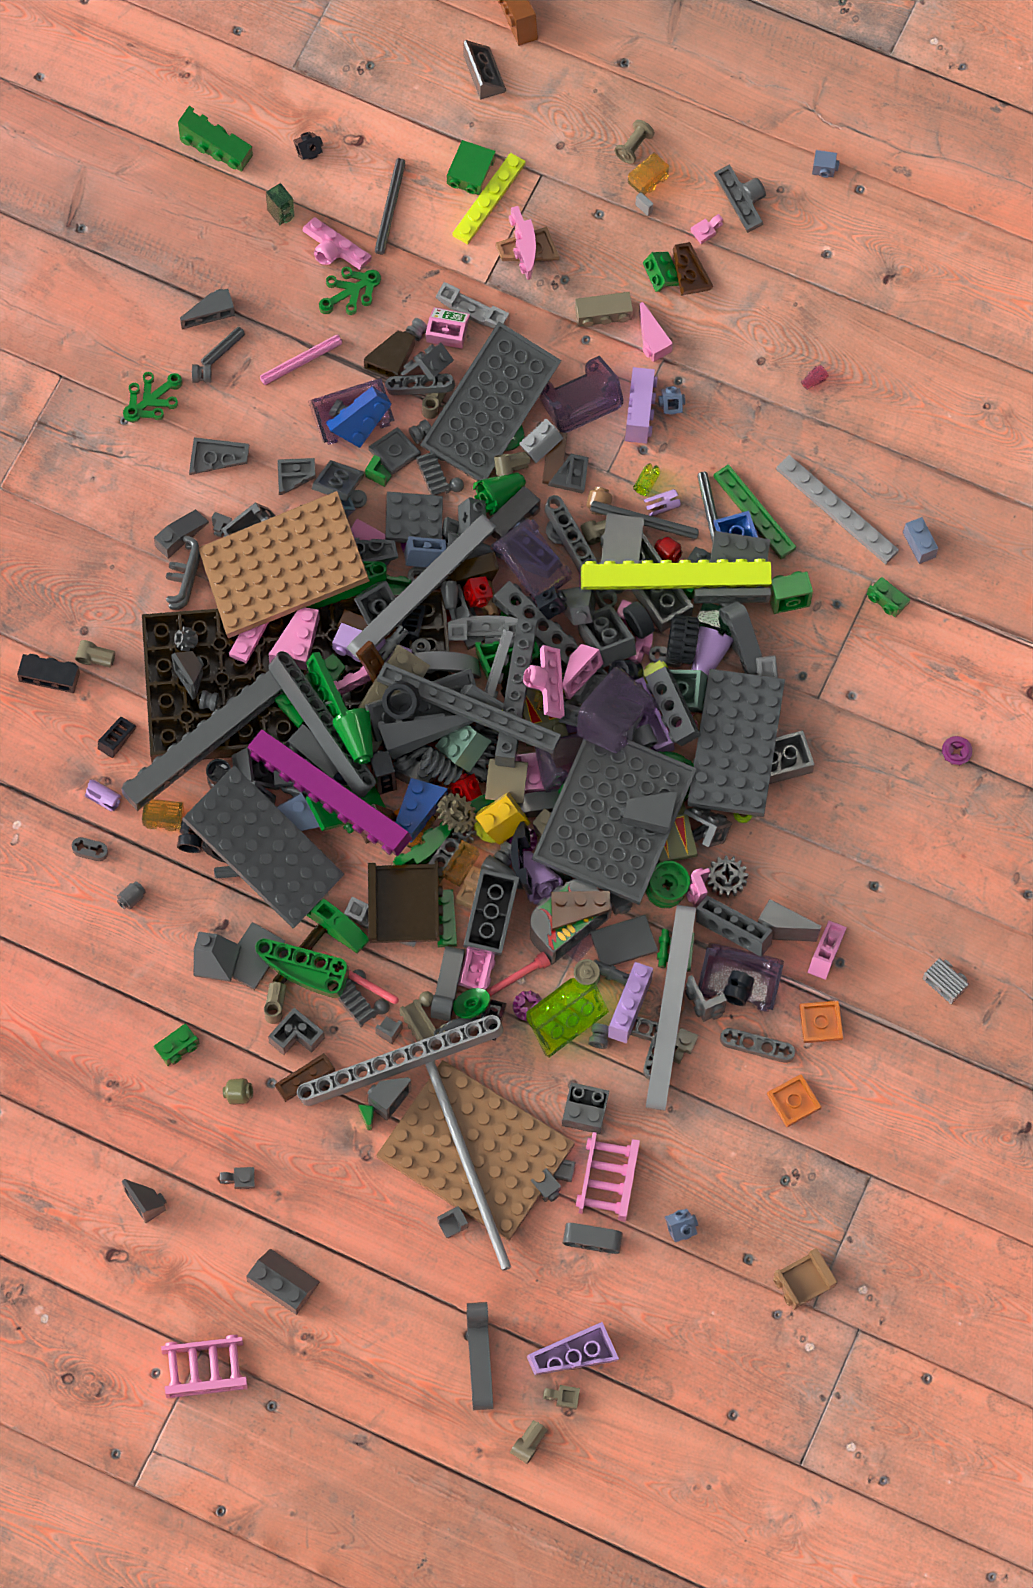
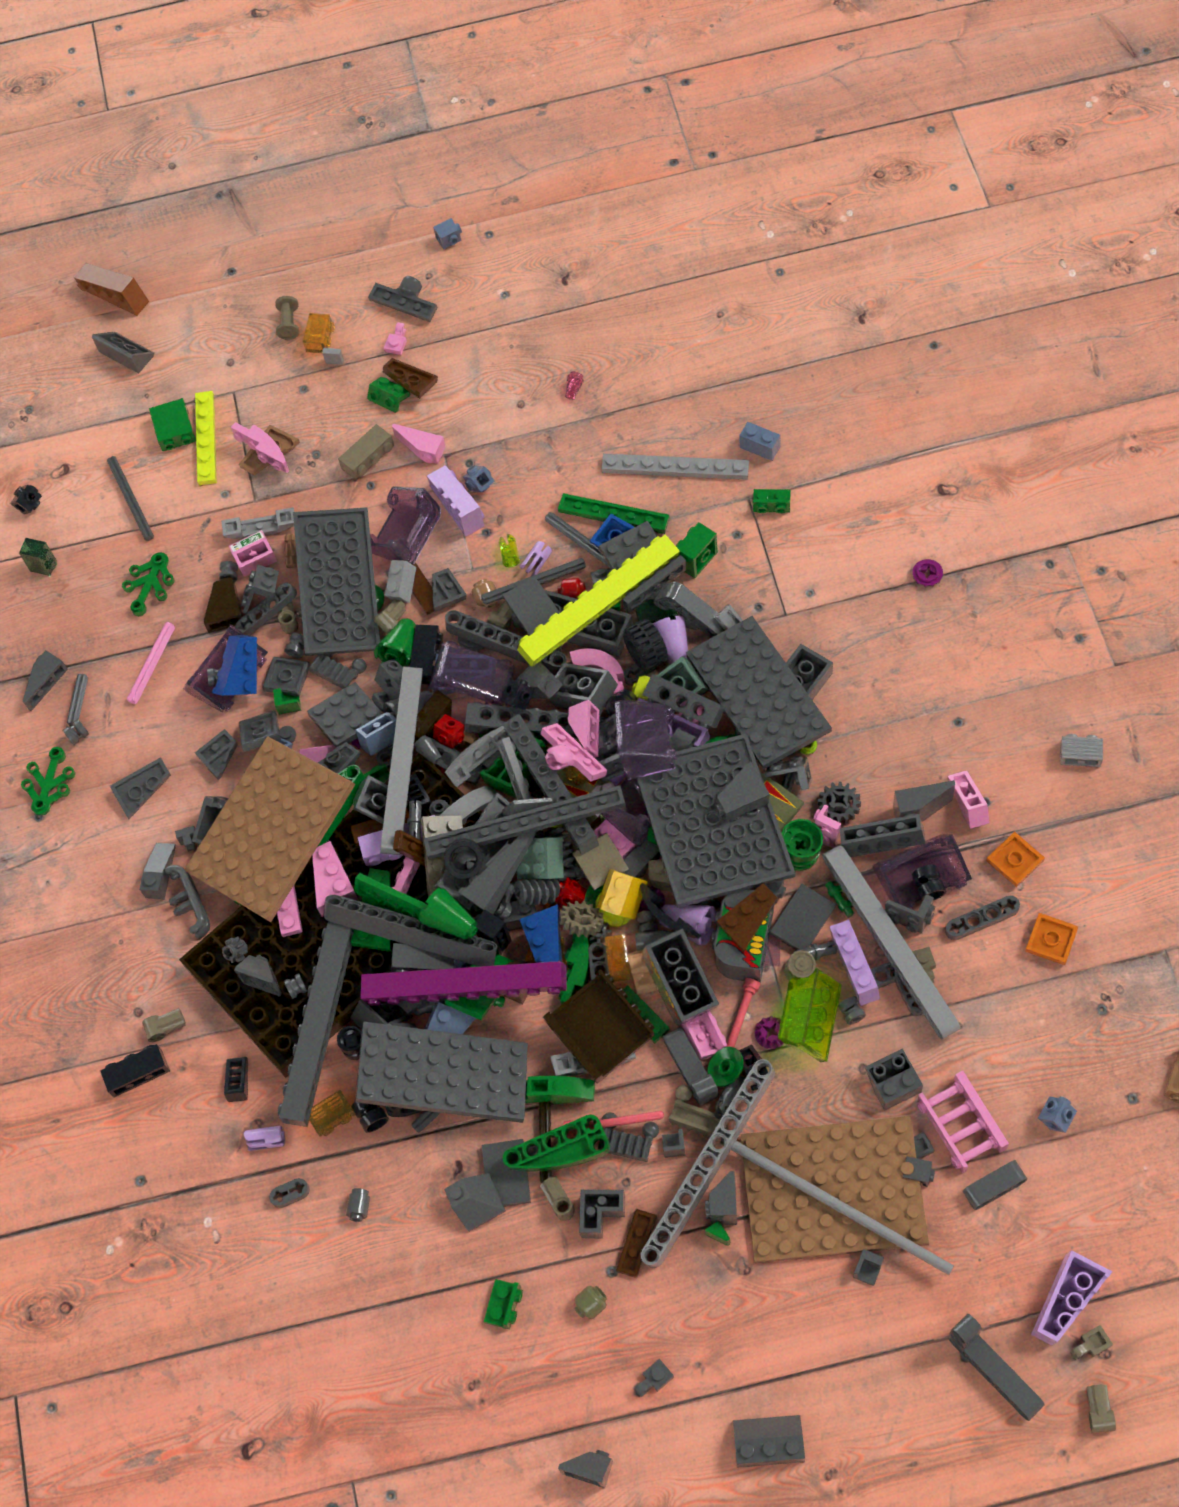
camera: 25 degrees left, 5 degrees down
(334, 245) = (108, 558): bright pink plate -> none
(477, 347) = (290, 551): none -> medium nougat axle
(638, 620) = (598, 655): black tyre -> none

